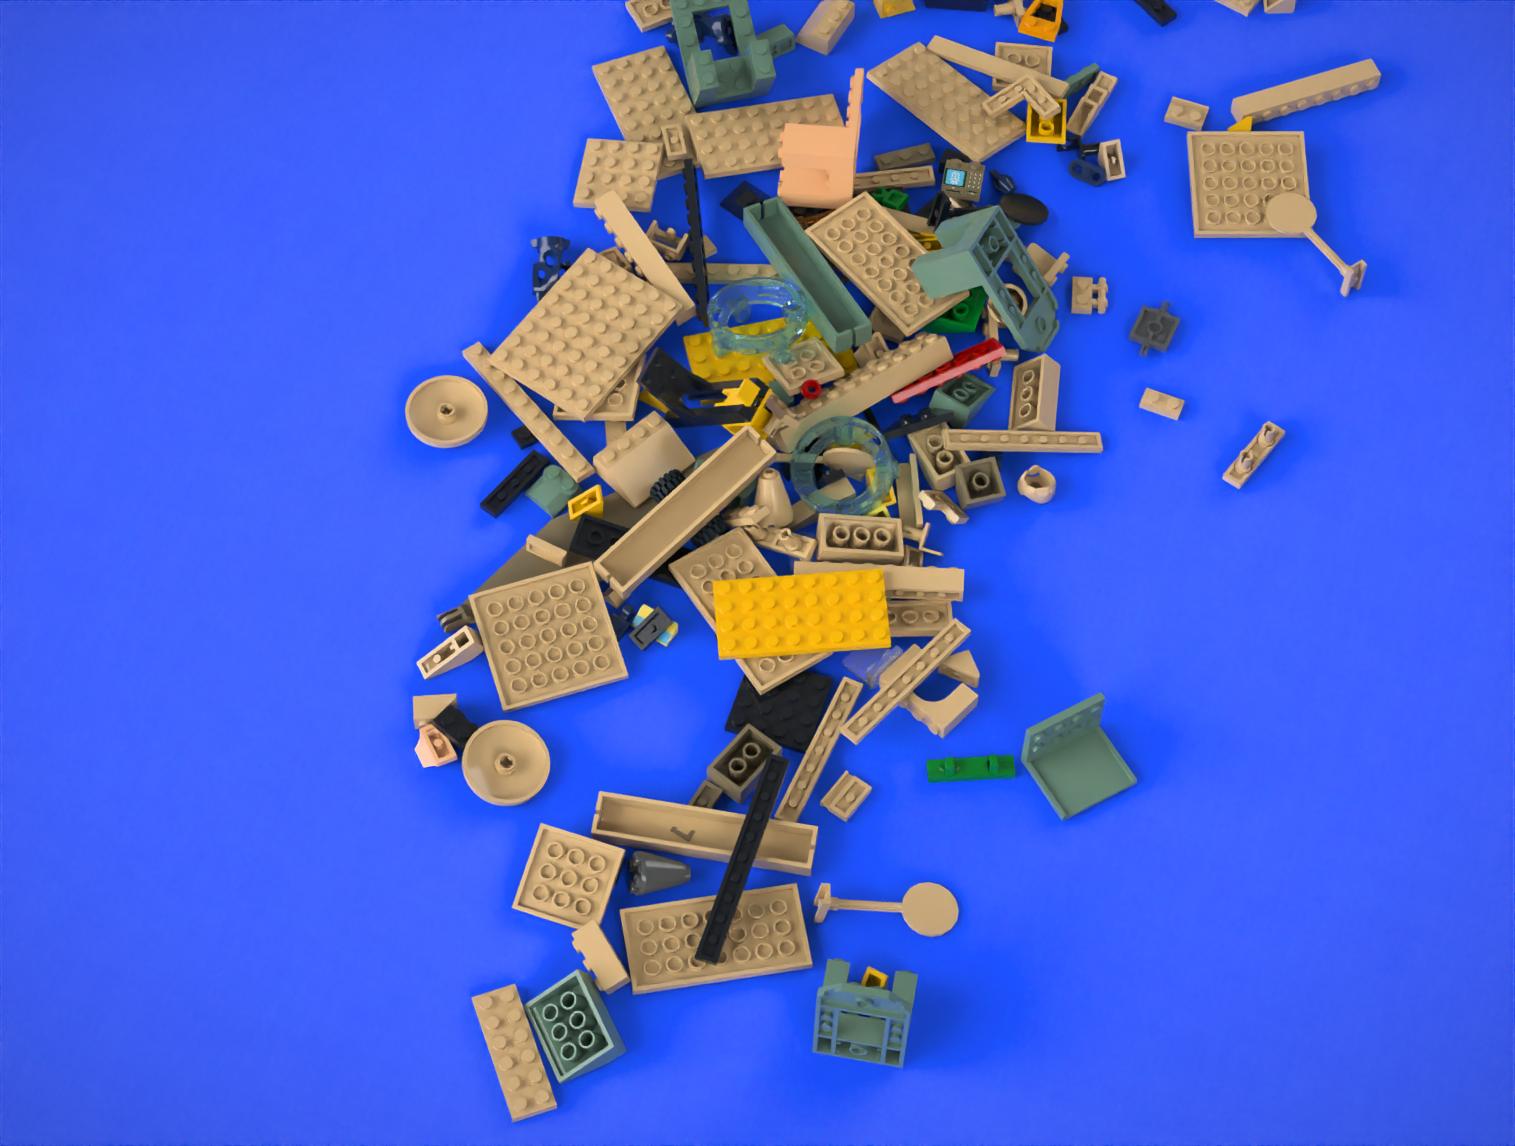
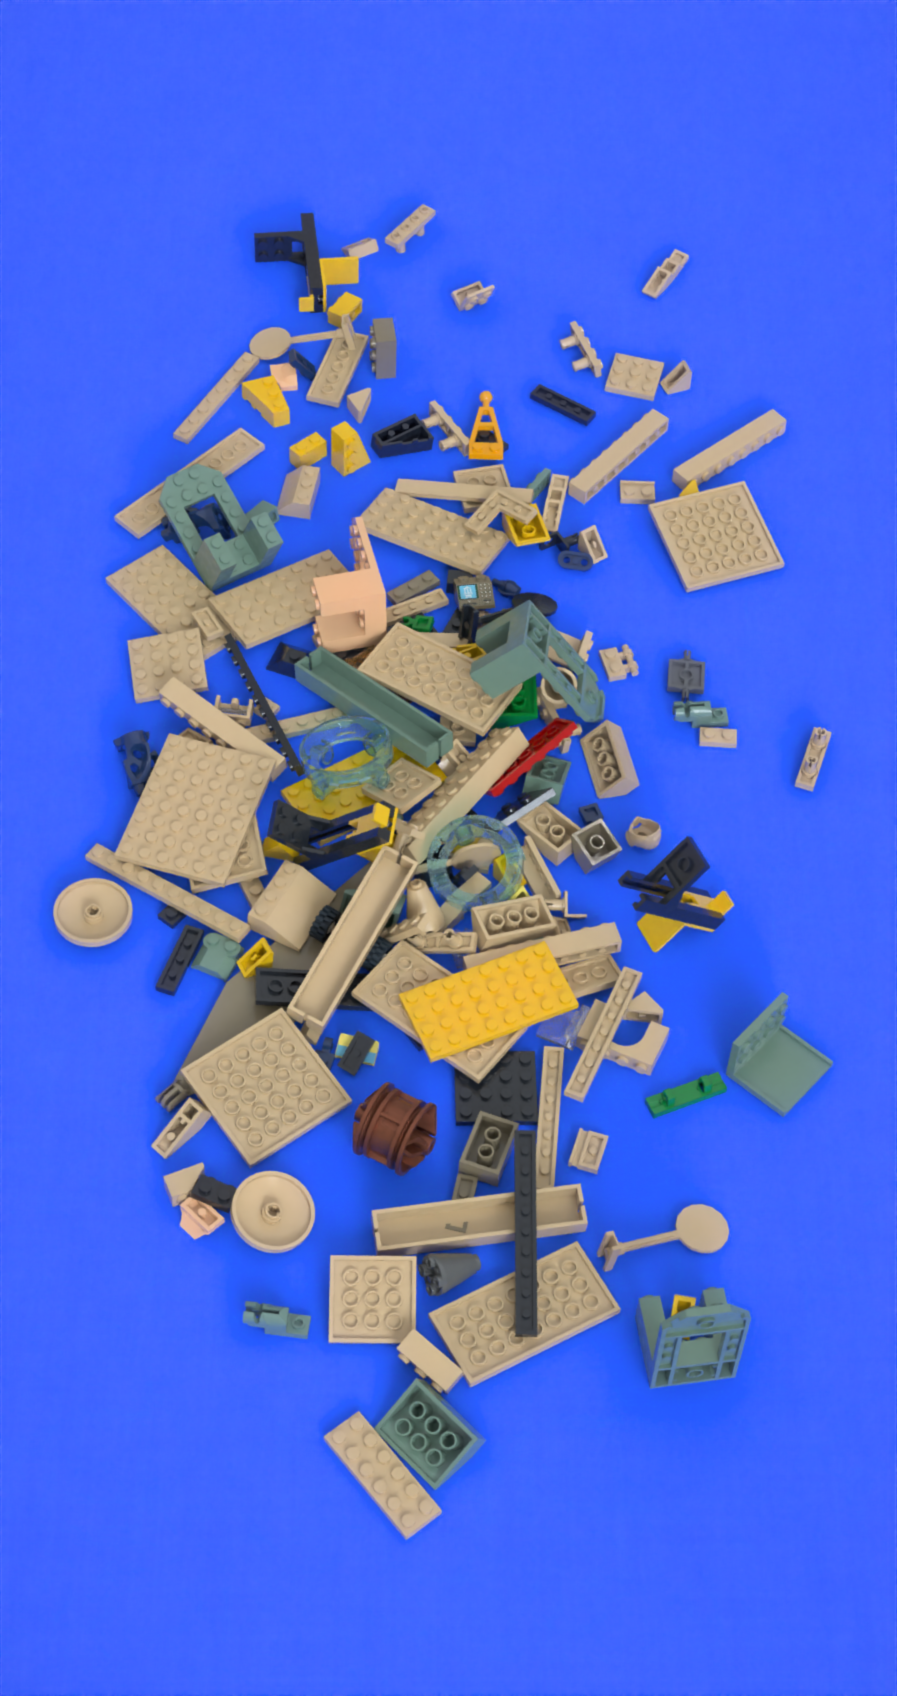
camera: 20 degrees left, 5 degrees down
(469, 870) = (276, 1320): none -> plate
(546, 550) = (234, 1010): tan tile -> none
(653, 716) = (394, 1128): none -> copper wheel
(813, 384) = (419, 798): red plate -> none
(940, 501) = (564, 871): tan plate -> none
(1022, 441) = (615, 799): tan tile -> none
(1035, 566) = (680, 902): none -> black piece
(1151, 374) = (699, 714): none -> sand green plate
(1181, 69) = (618, 456): none -> tan brick
(1297, 215) = (767, 552): tan piece -> none

